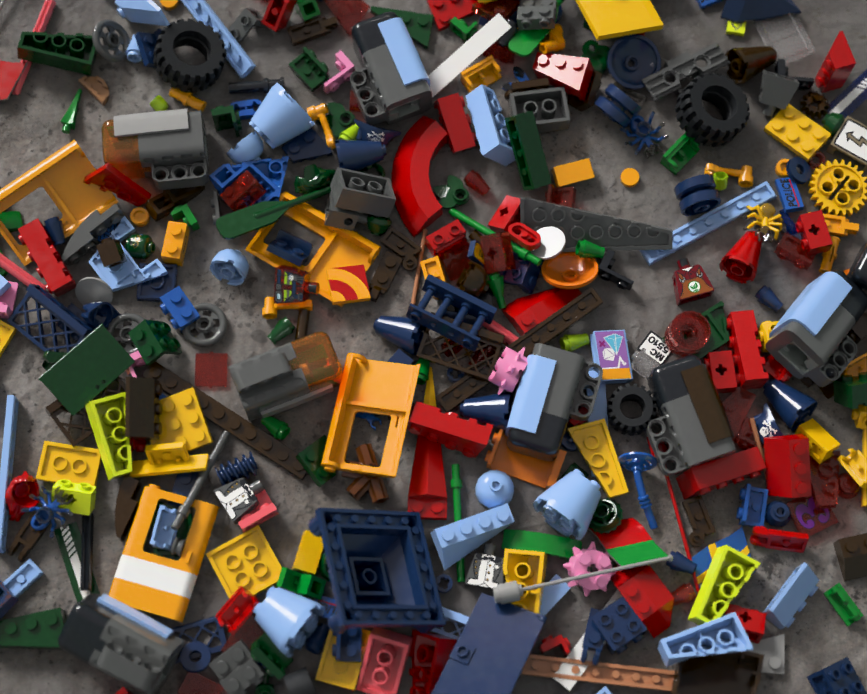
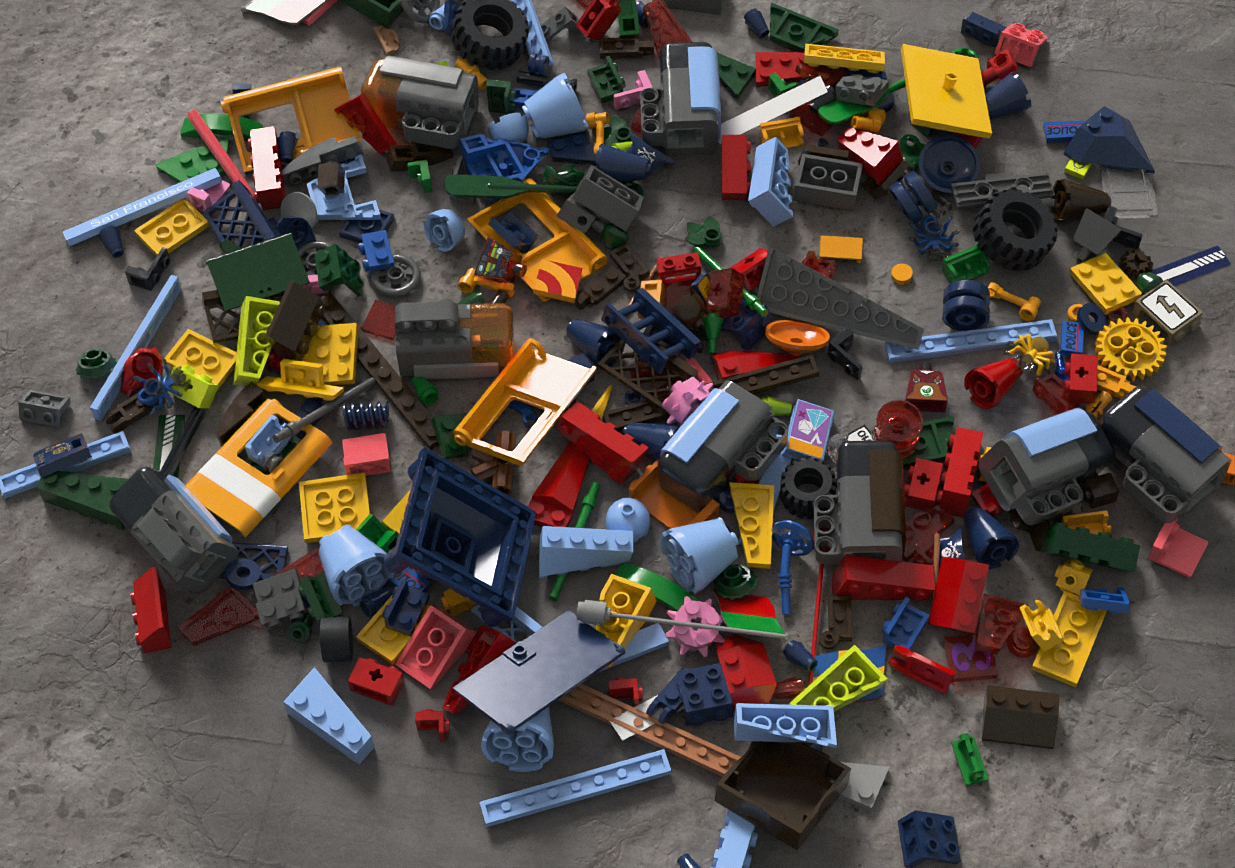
camera: 25 degrees right, 15 degrees down
(69, 118) = (349, 58): green piece -> none
(139, 216) = (376, 163): light orange tile -> none
(140, 246) = (364, 186): dark green head -> none
(175, 243) = (400, 193): light orange brick -> none
(237, 610) = (304, 541): red hinge -> none
(239, 498) = (355, 437): torso -> none
(243, 192) = (489, 163): clear red bracket -> none
(245, 74) = (538, 64): none -> dark blue wheel
(411, 175) = (666, 210): red brick -> none
(424, 371) = (598, 385): green cone -> none
(449, 585) = (539, 593): dark blue bush -> none
(476, 182) = (734, 230): clear red cone -> none
(485, 570) = (580, 588): torso -> none
(527, 237) = (759, 285): red plate -> none
(528, 150) = (798, 210): dark green brick -> none
(552, 243) = (782, 300): shield -> none
(589, 250) = (824, 321): green cone -> none
(721, 180) = (999, 303): lime piece -> none
(751, 620) = (851, 739): red brick -> none
(768, 298) = (1004, 426): dark blue cone -> none
(777, 514) = (931, 645): dark blue cone -> none
(791, 596) = (910, 727): light blue slope -> none
(820, 441) = (1004, 583): yellow hinge -> none
(836, 65) = (1168, 225): red slope -> none

